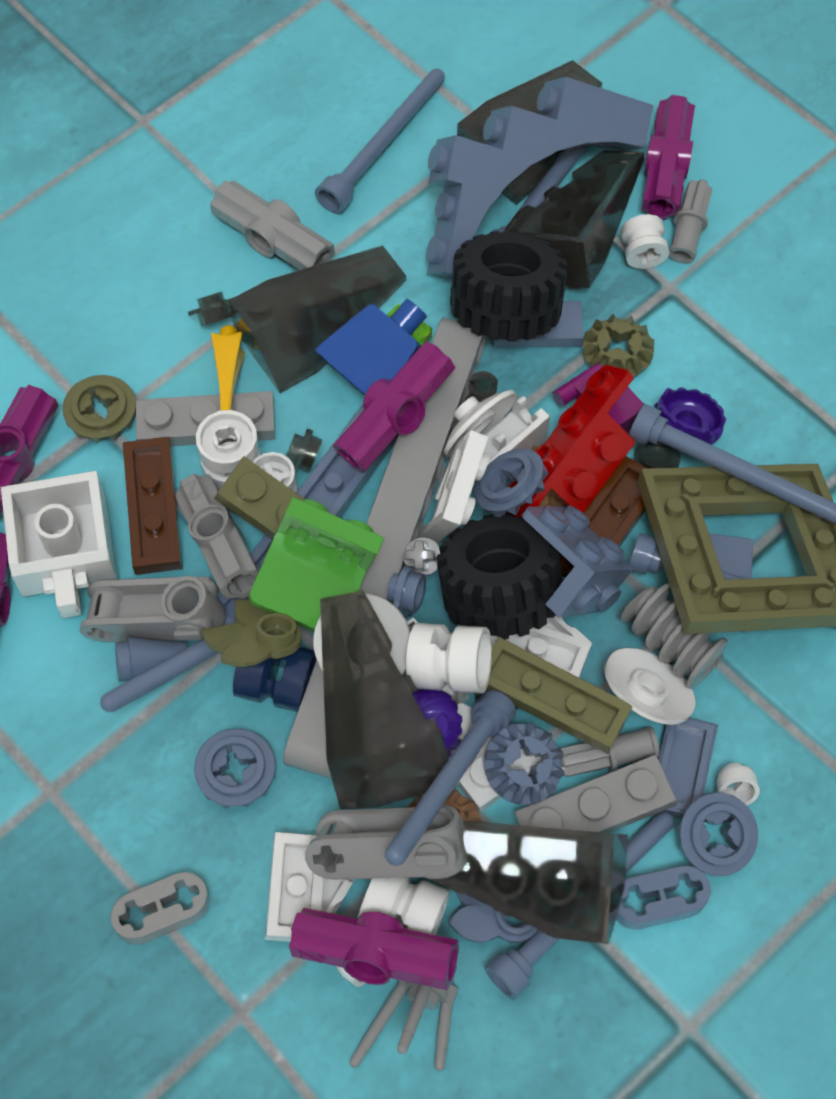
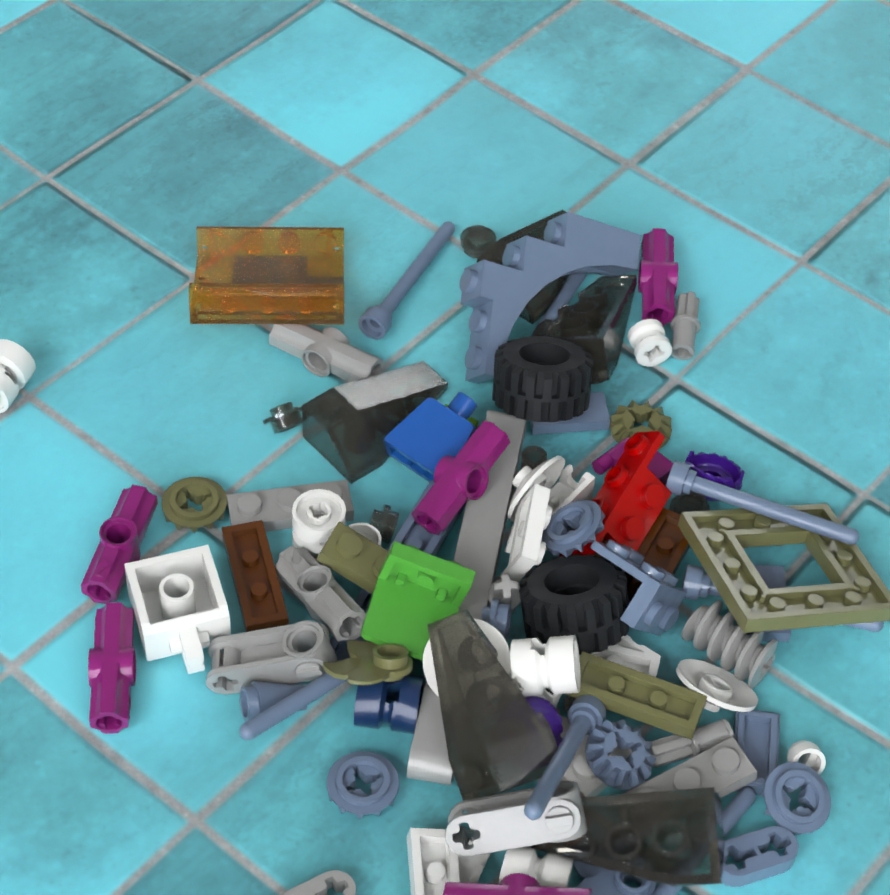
camera: 10 degrees left, 15 degrees down
(219, 131) = (268, 276): none -> clear orange panel
(228, 362) = (303, 457): yellow piece -> none
(467, 94) = (477, 240): none -> clear smoke plate

